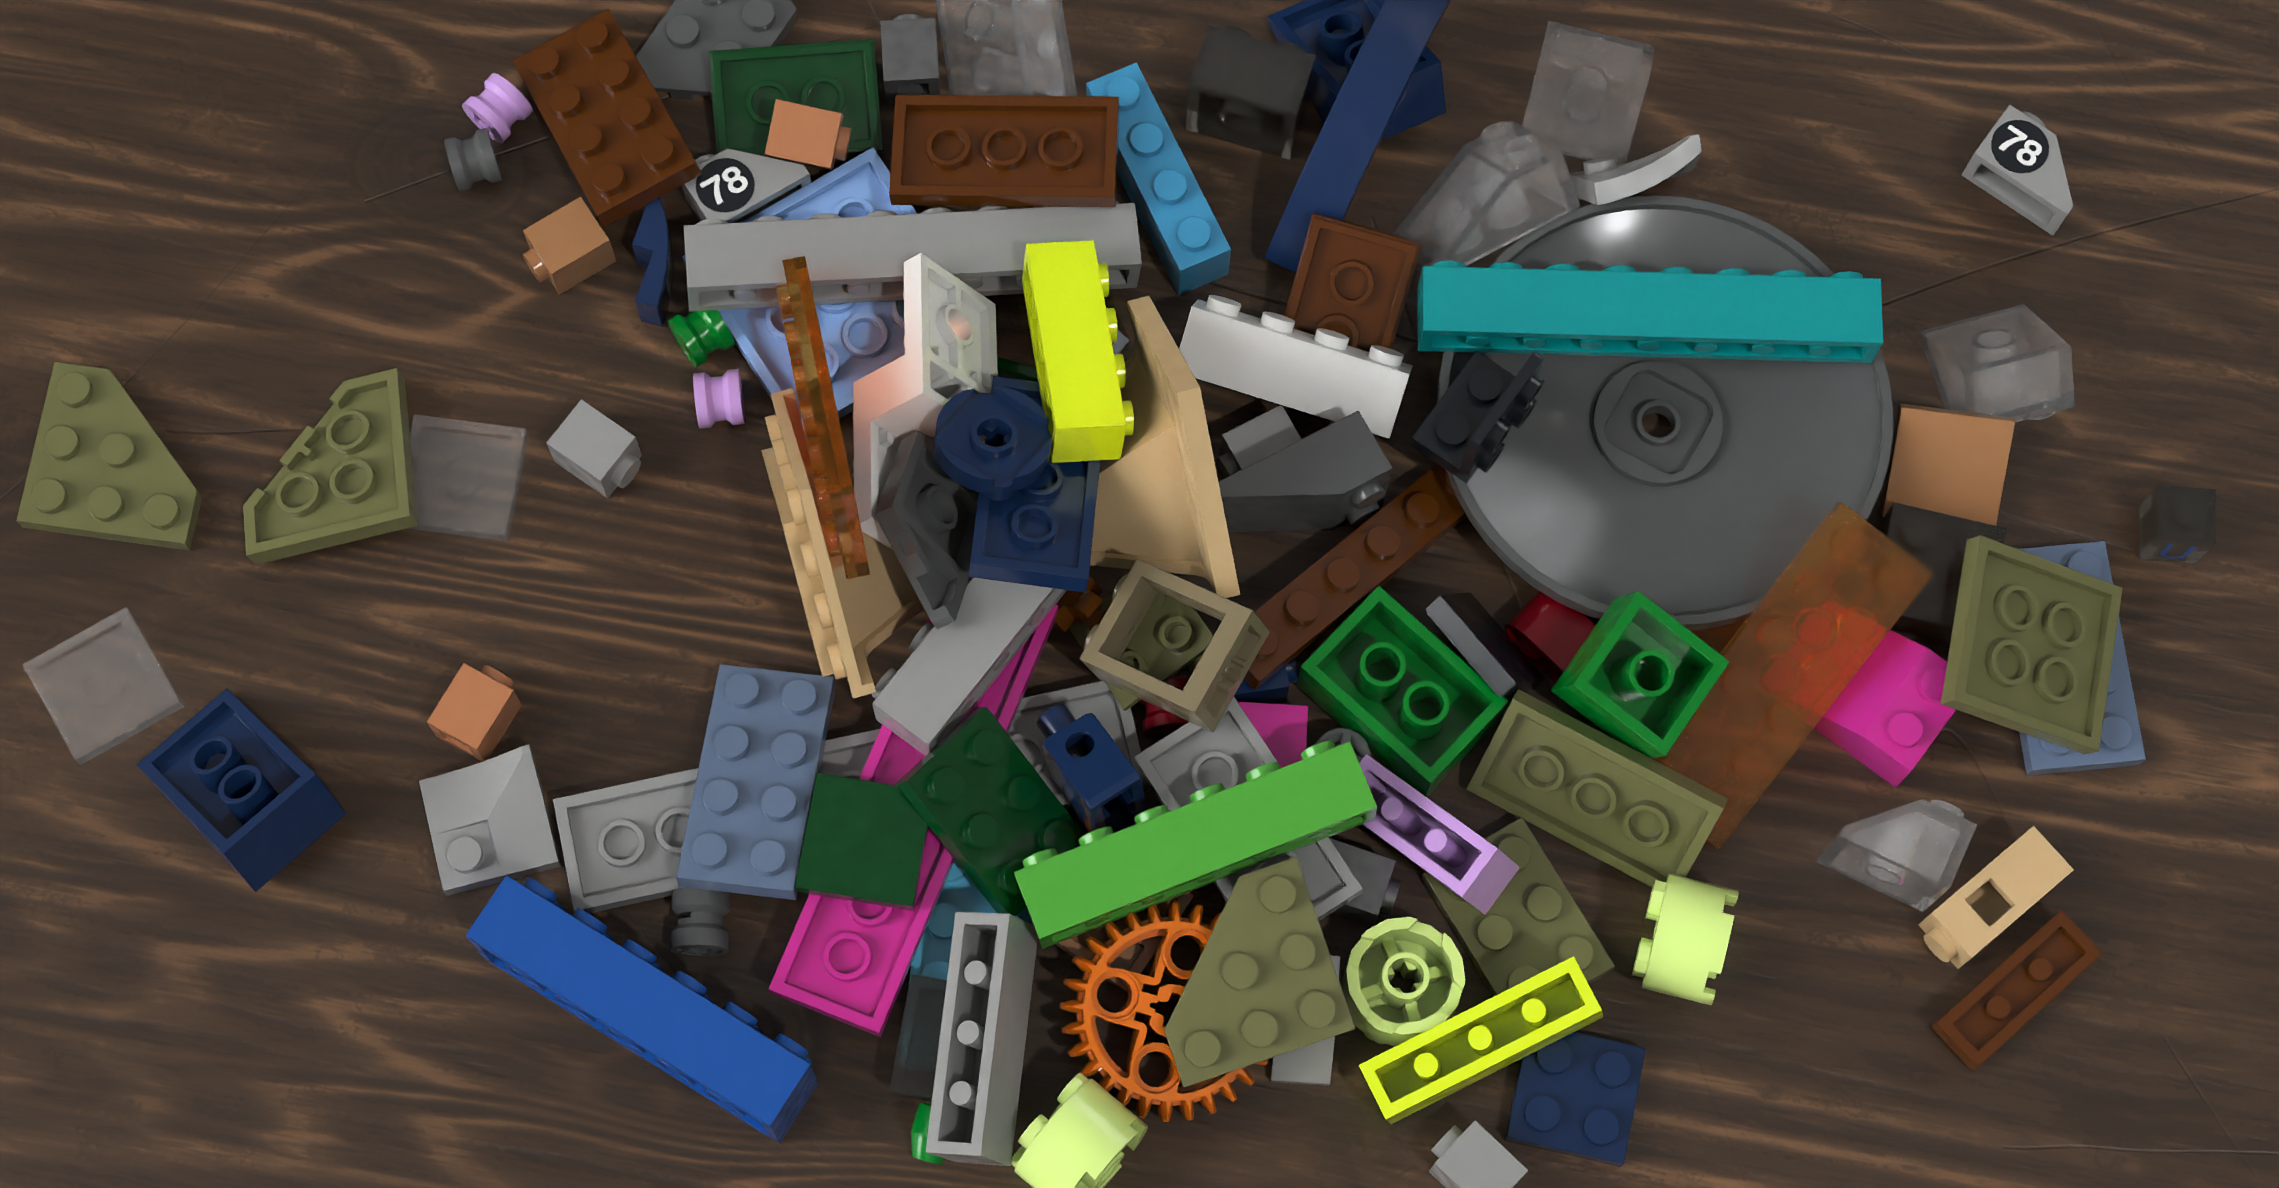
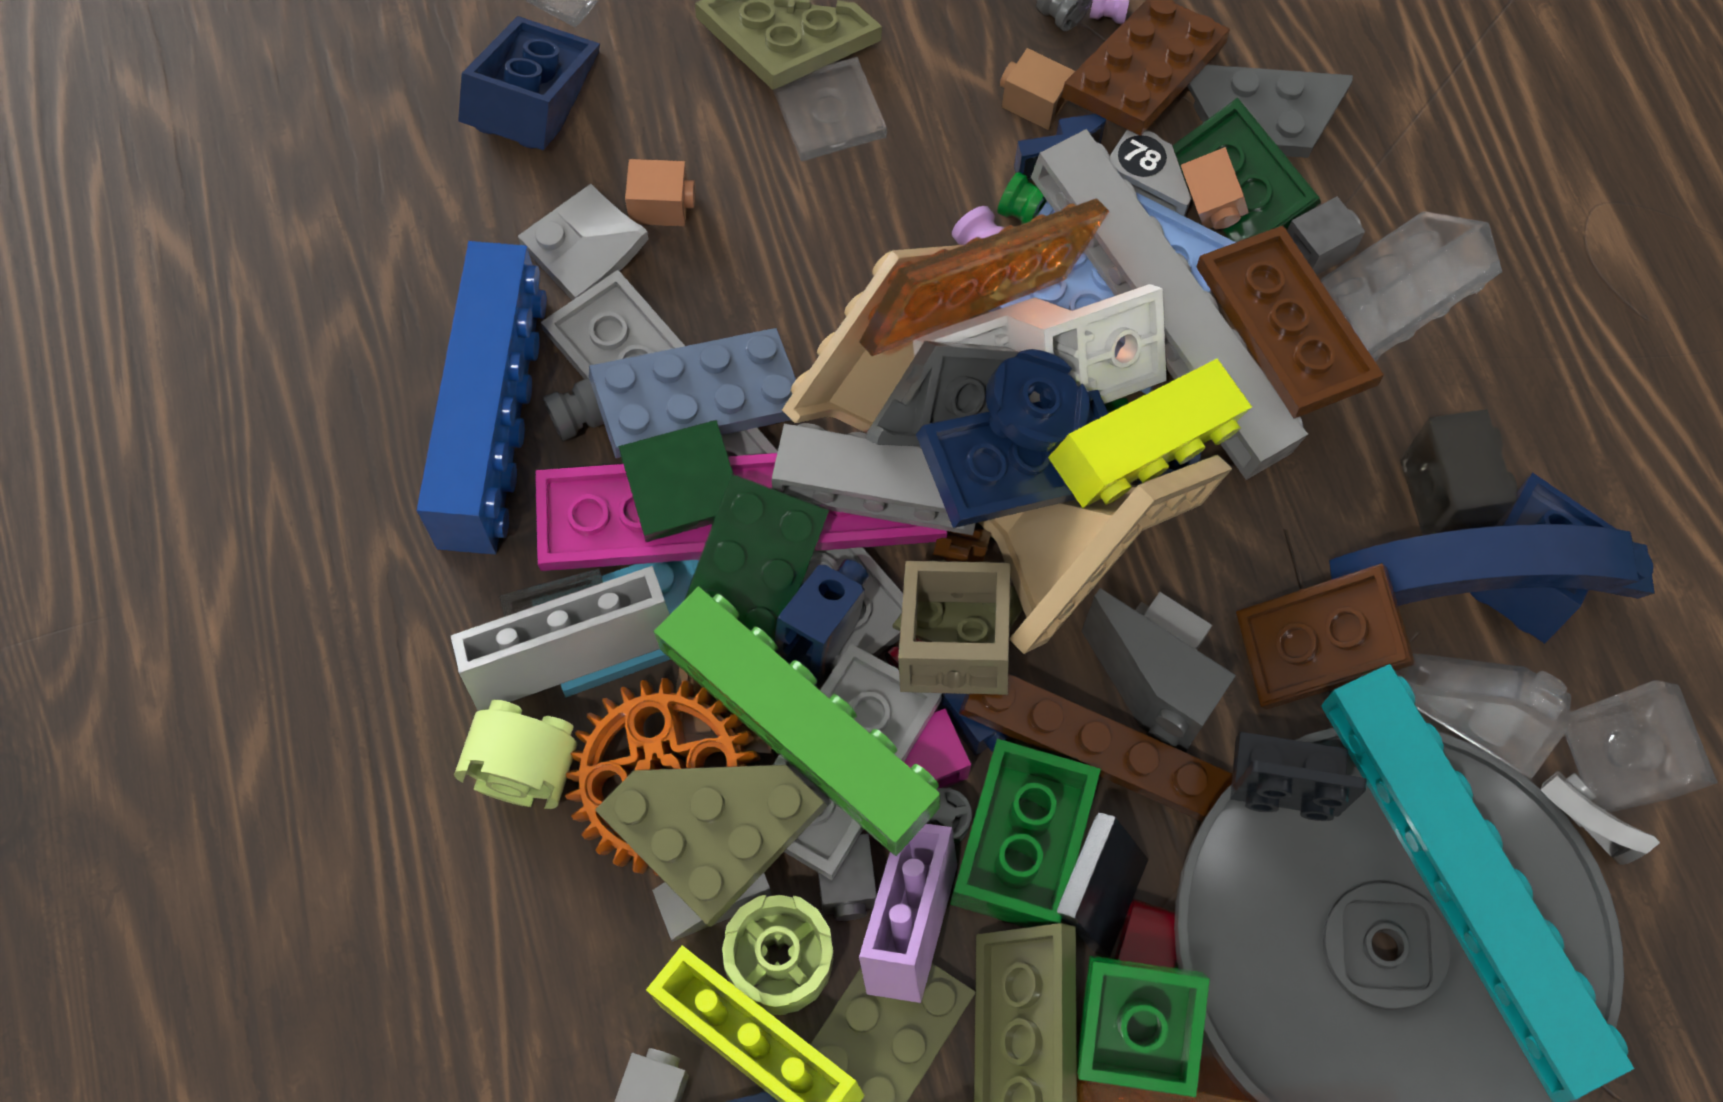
camera: 65 degrees right, 5 degrees down
(595, 449) = (895, 175): light grey brick -> none
(1163, 185) = (1341, 453): dark azure brick -> none
(1292, 366) = (1250, 620): white brick -> none

